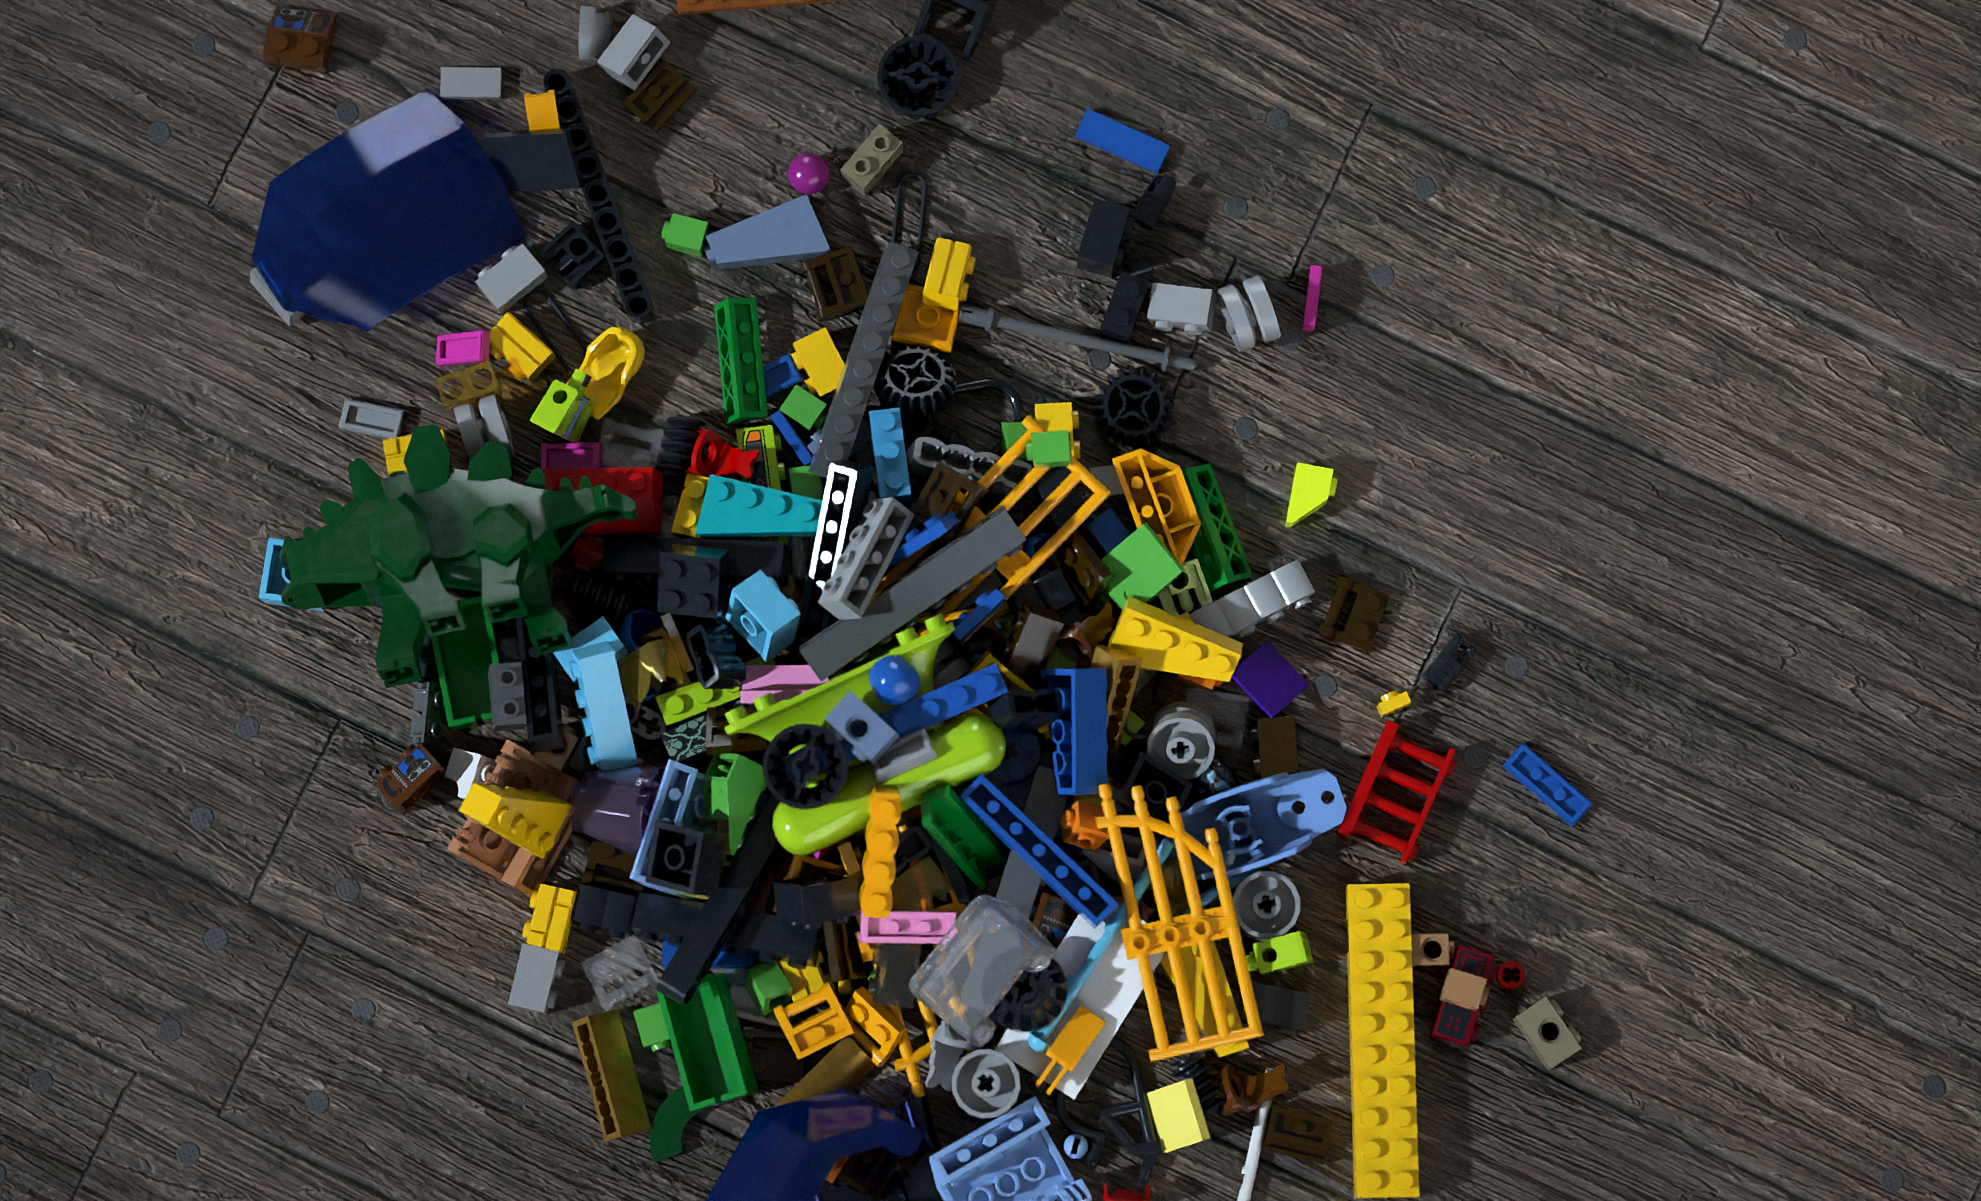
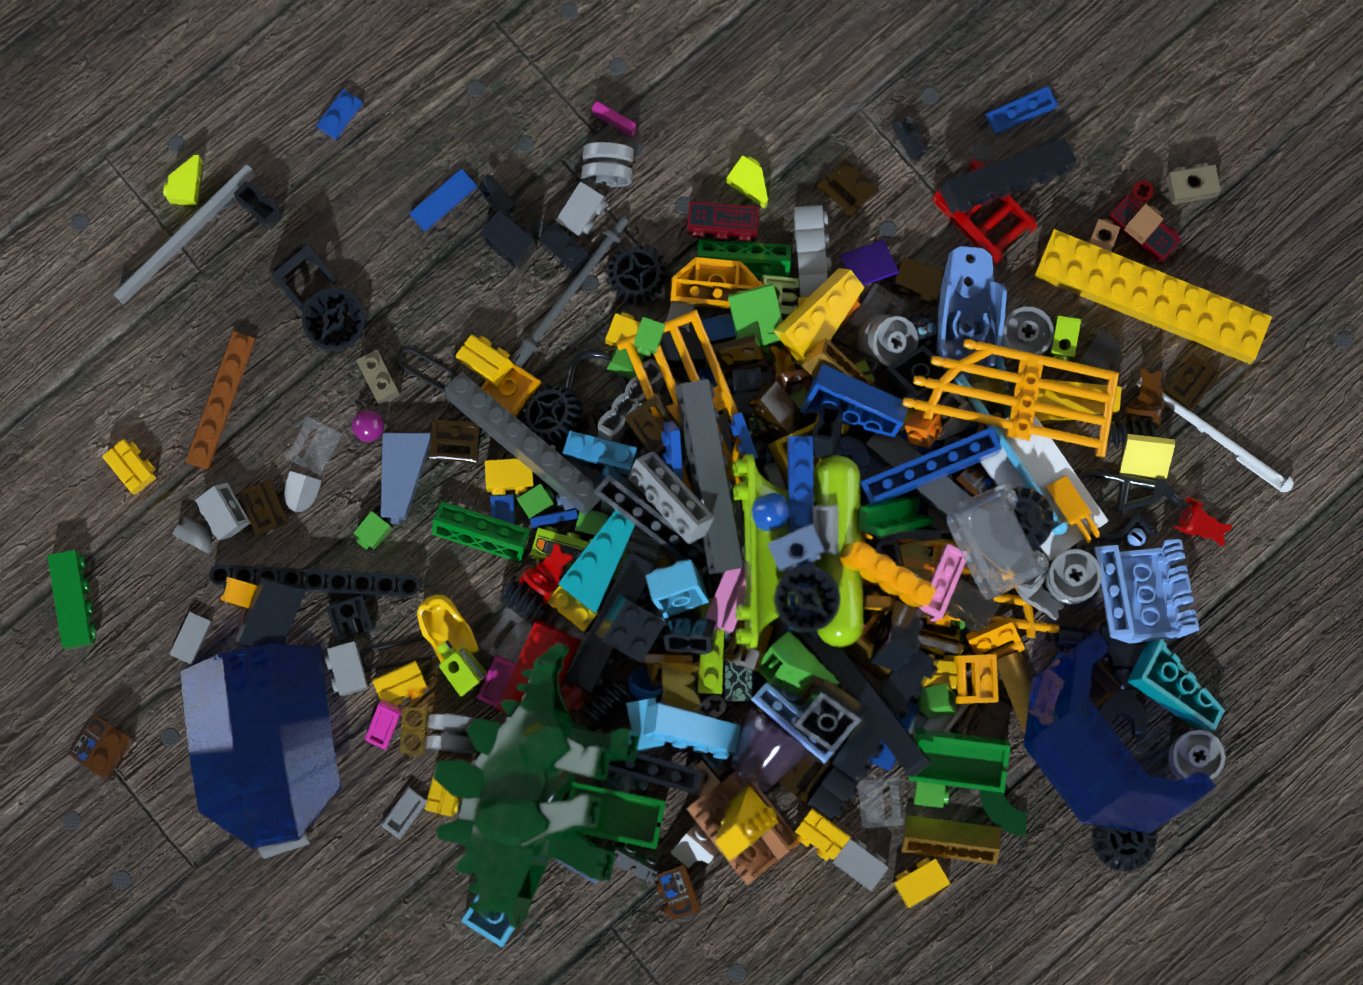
camera: 70 degrees left, 0 degrees up
(507, 696) = (654, 796): dark grey brick -> none
(544, 1060) = (921, 882): none -> yellow brick
(698, 131) = (300, 491): none -> light grey brick
(755, 131) = (320, 448): none -> clear plate
(1243, 482) = (722, 221): none -> brick
(1393, 702) = (921, 187): yellow plate -> none
(1450, 799) = (1008, 175): none -> black brick

